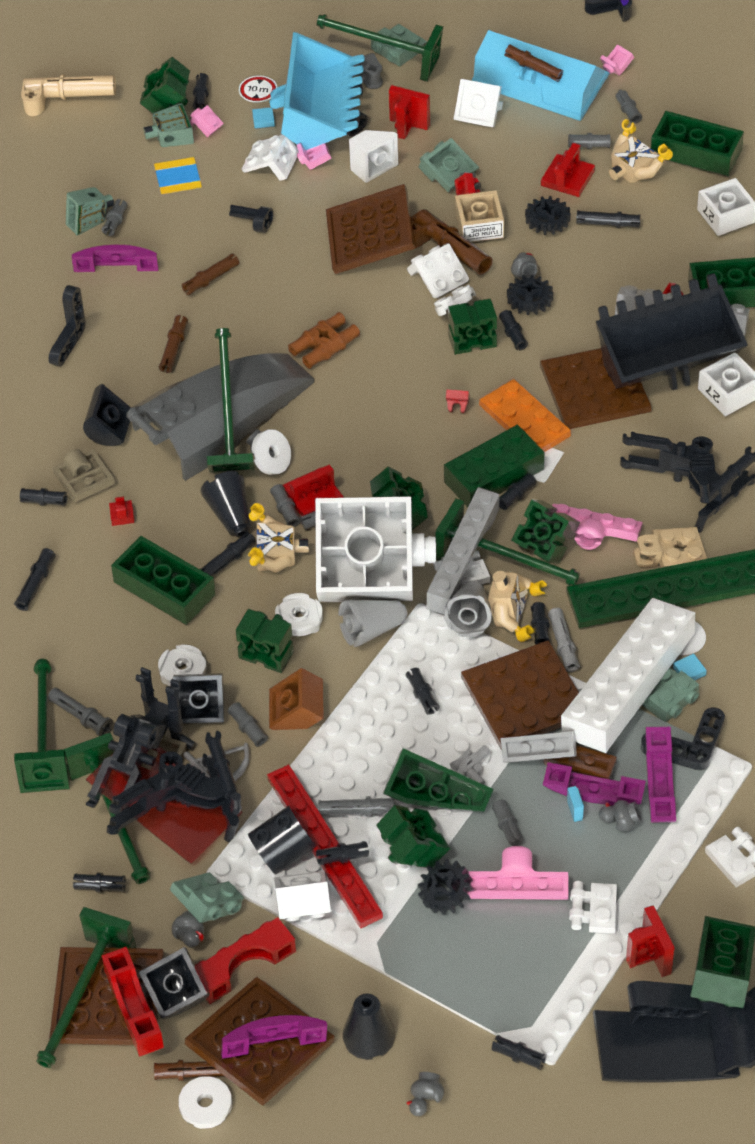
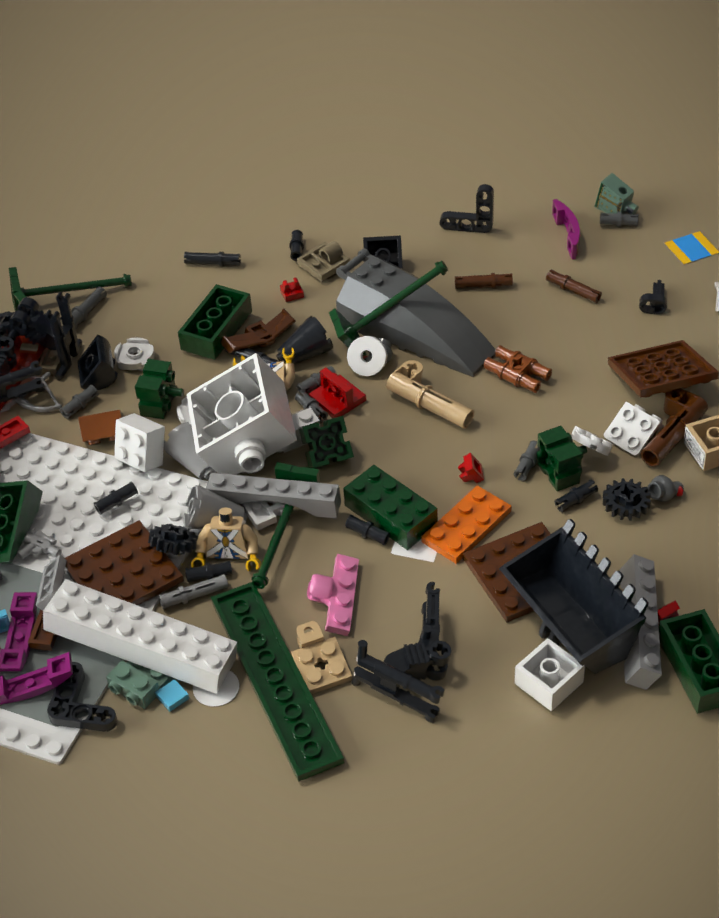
camera: 80 degrees right, 5 degrees down
(192, 542) = (259, 333): none -> reddish brown plate
(320, 430) = (407, 383): none -> tan piece
(353, 657) = (139, 442): none -> white brick
(456, 356) = (527, 461): none -> dark grey pin
(503, 639) = (172, 539): none -> black gear
(545, 531) = (309, 550): dark green brick -> none

